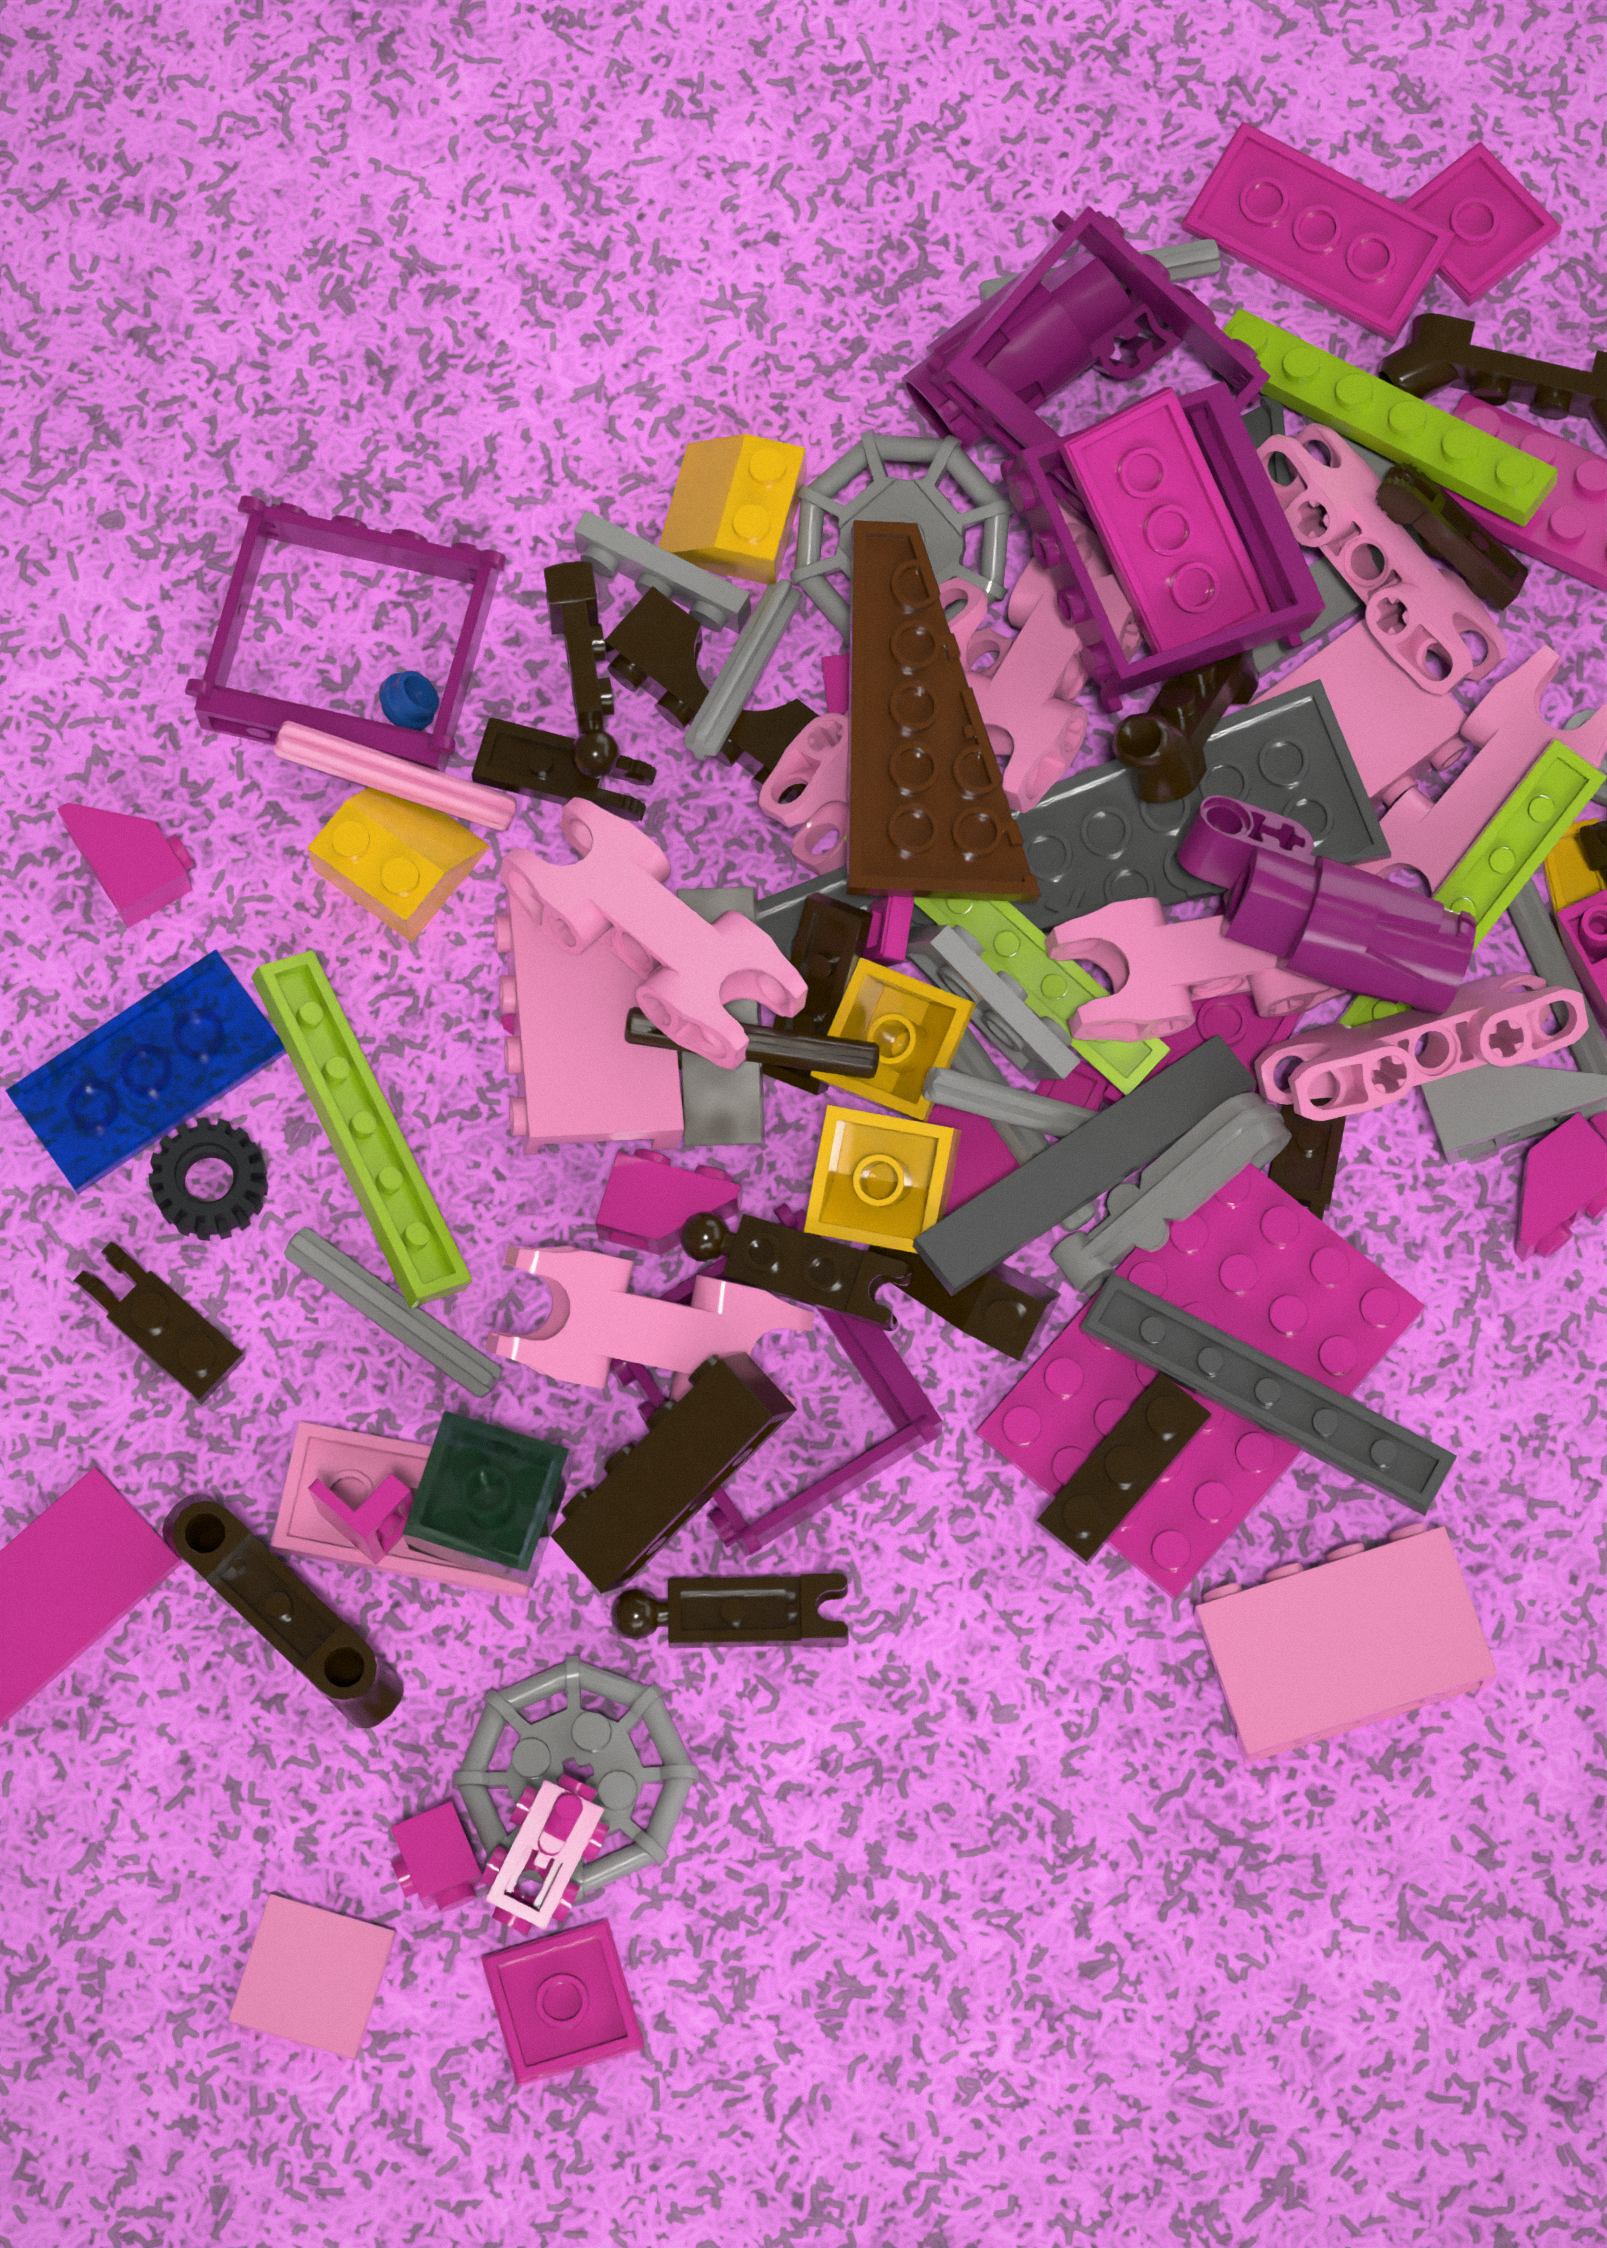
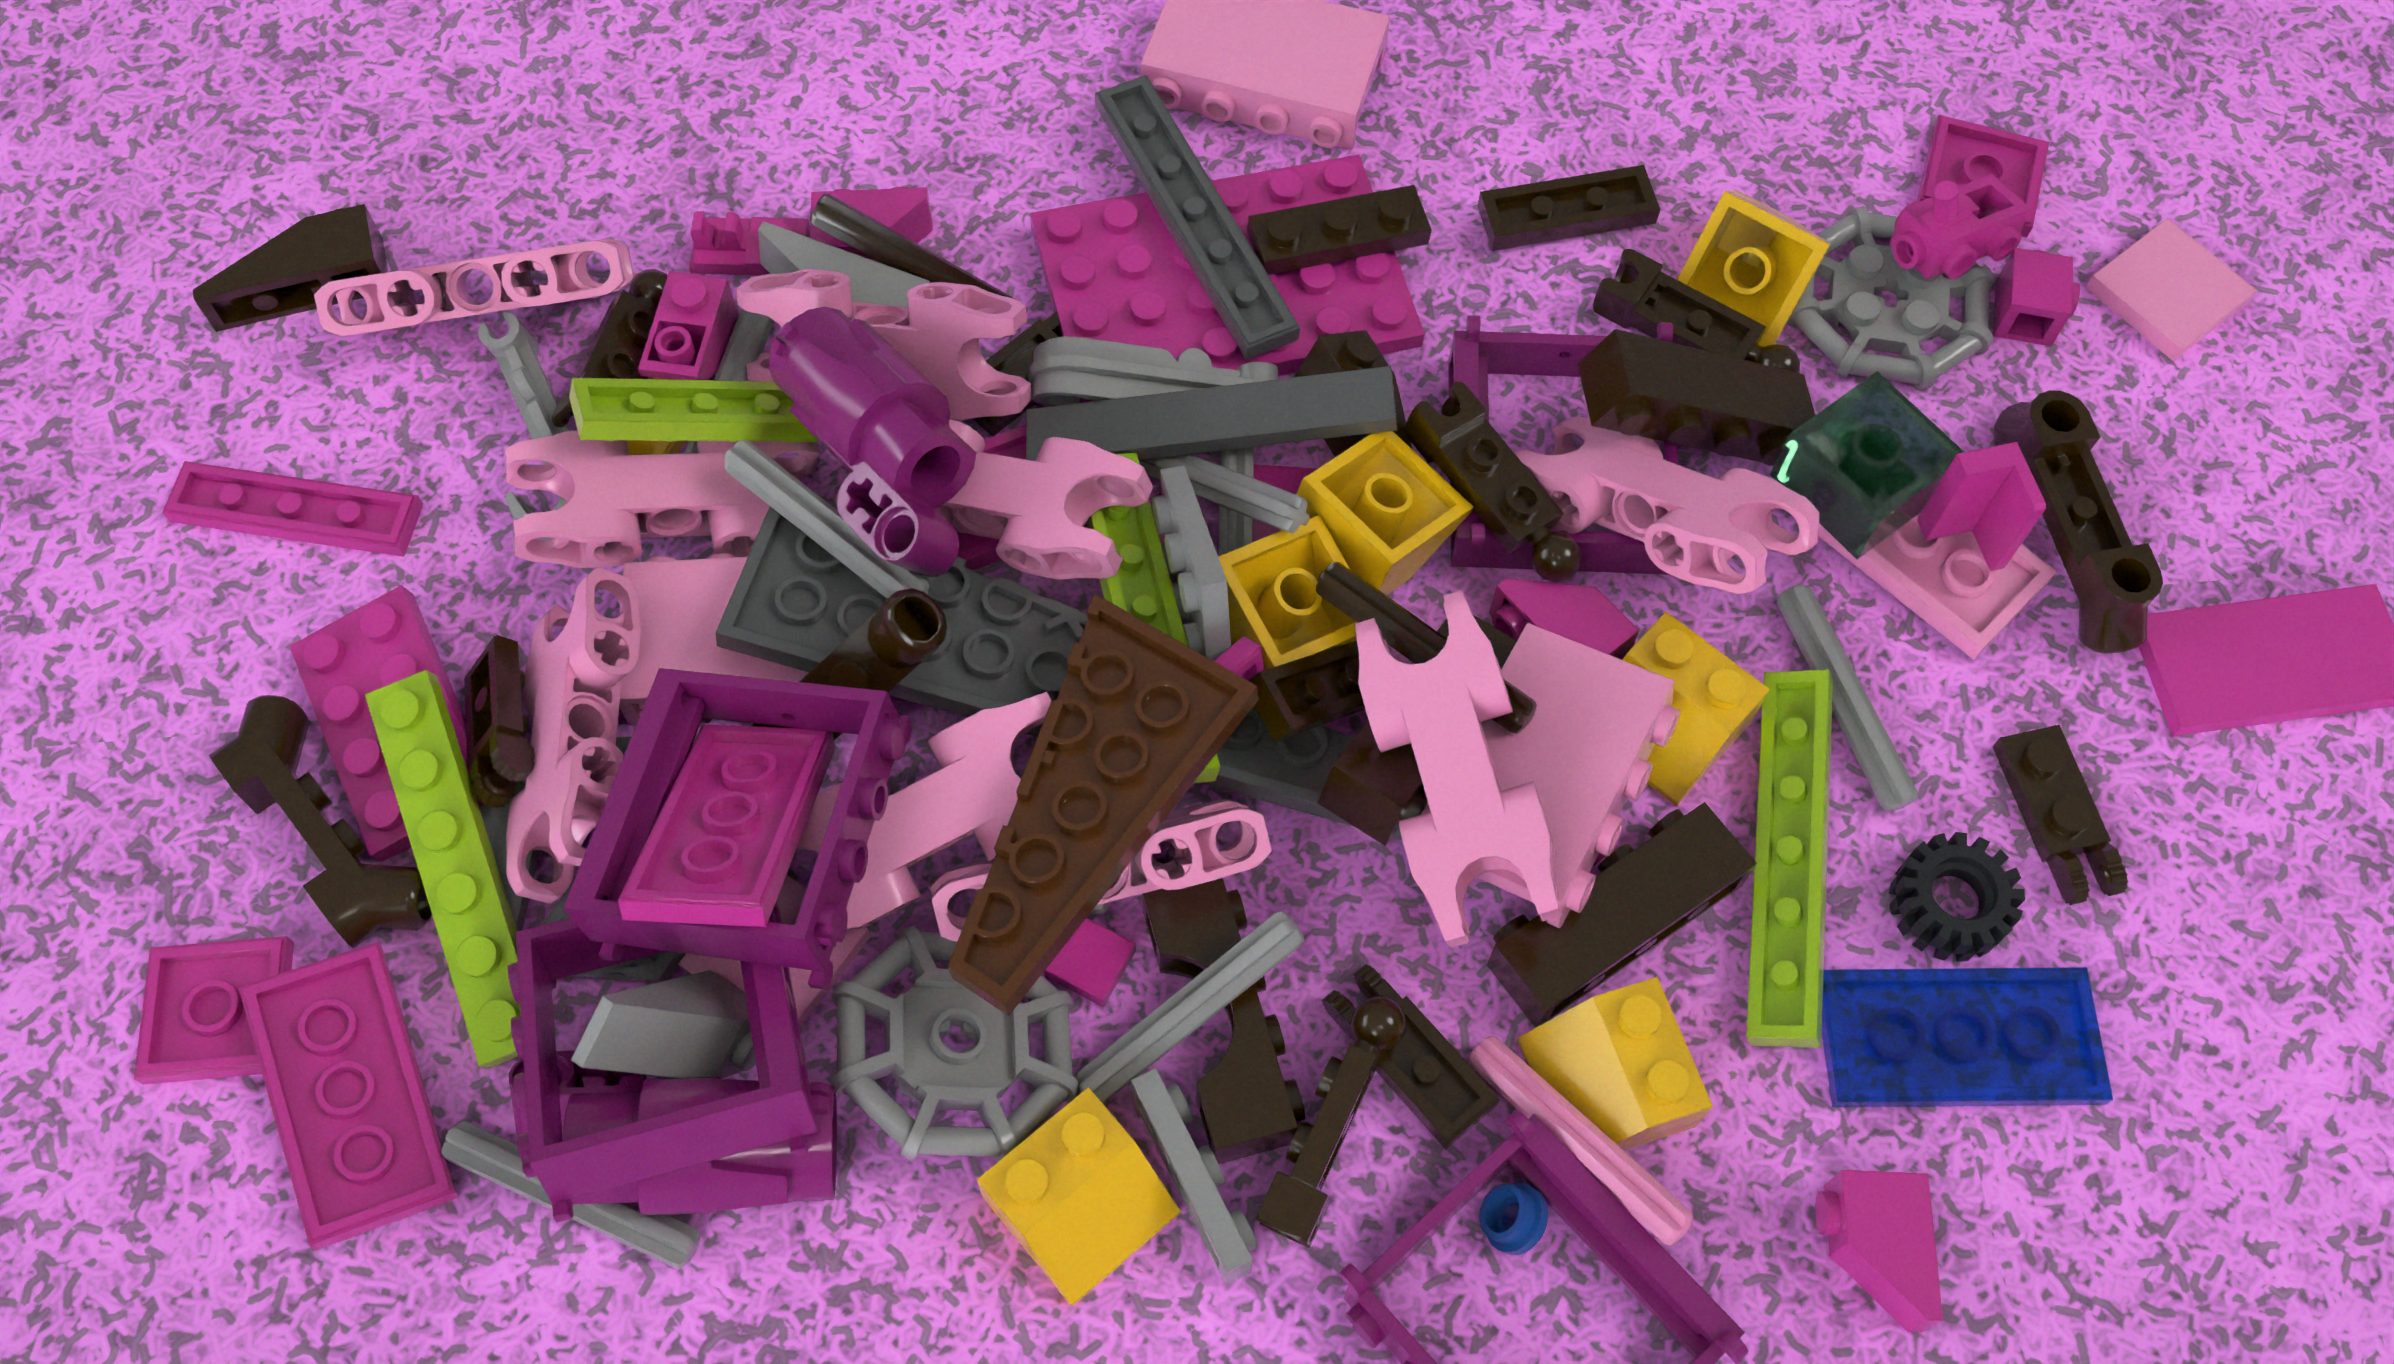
camera: 150 degrees left, 10 degrees down
(455, 1001) = (1631, 909): none -> dark brown brick
(526, 1198) = (1713, 699): none -> yellow slope
(723, 1710) = (1754, 261): none -> yellow slope
(936, 1670) = (1568, 207): none -> dark brown plate
(1101, 374) = (671, 1030): none -> light grey slope
(1361, 828) = (816, 519): none -> light grey axle
(1469, 1164) = (888, 245): none -> dark brown axle

